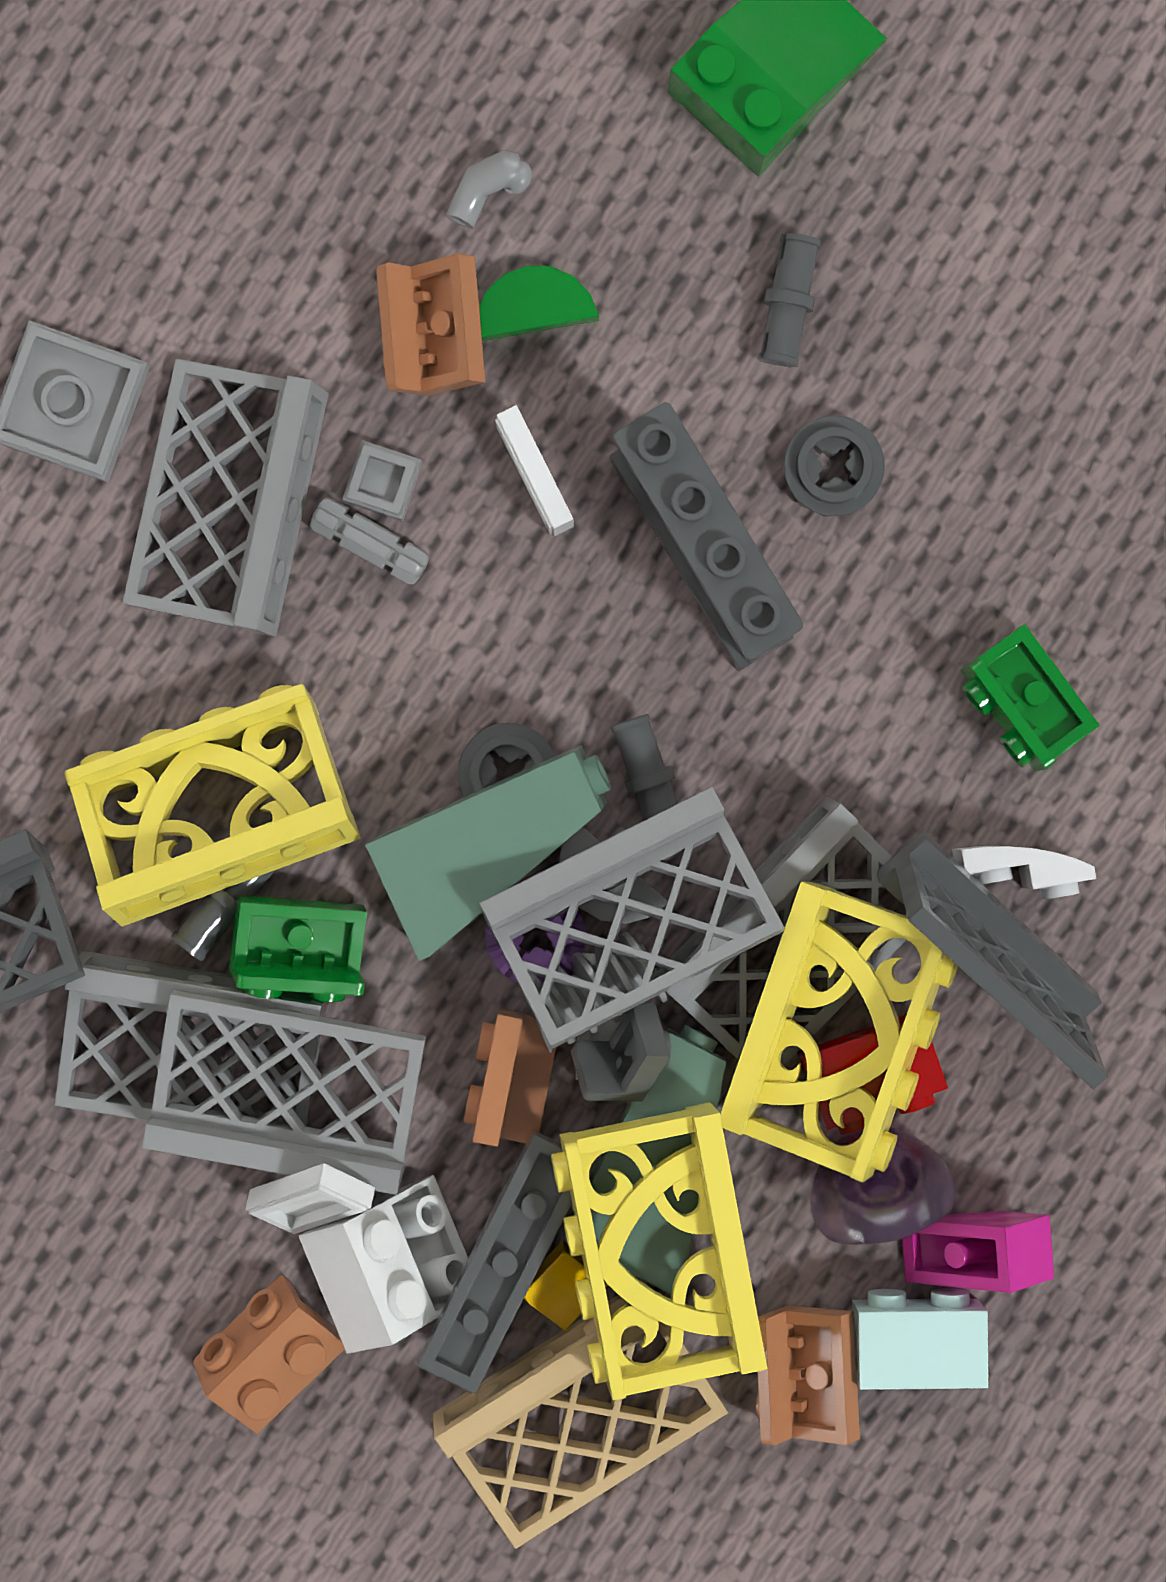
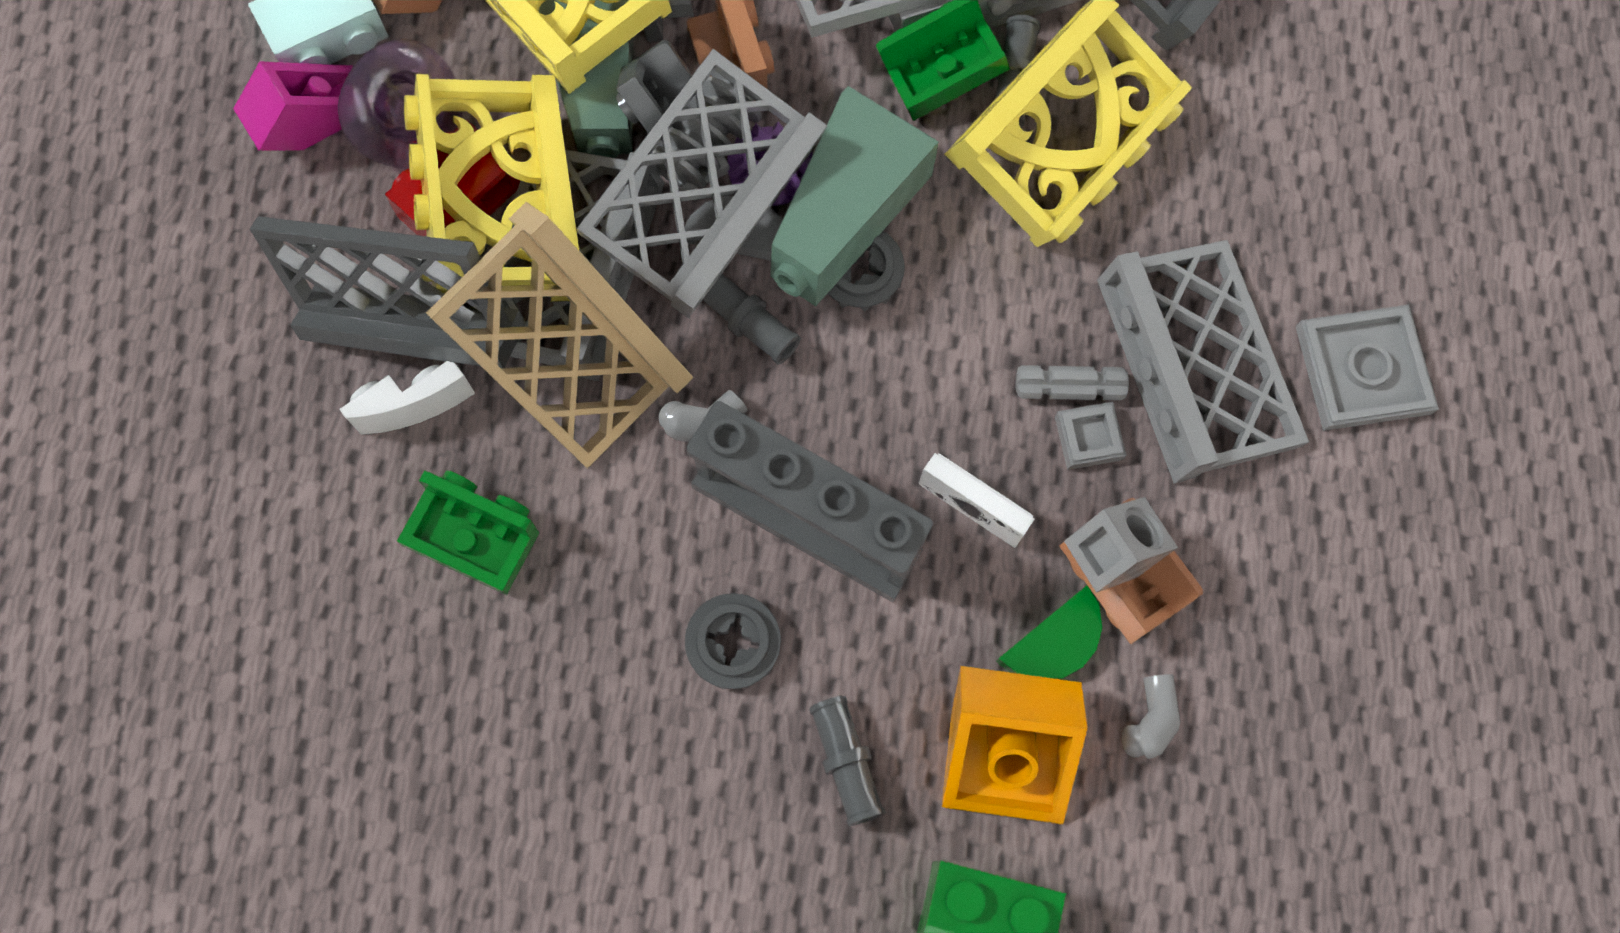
camera: 145 degrees right, 15 degrees down
(436, 340) = (1120, 544): none -> light grey brick
(630, 232) = (1014, 744): none -> light orange slope
(753, 693) = (683, 420): none -> light grey arm
(812, 847) = (588, 295): none -> tan fence

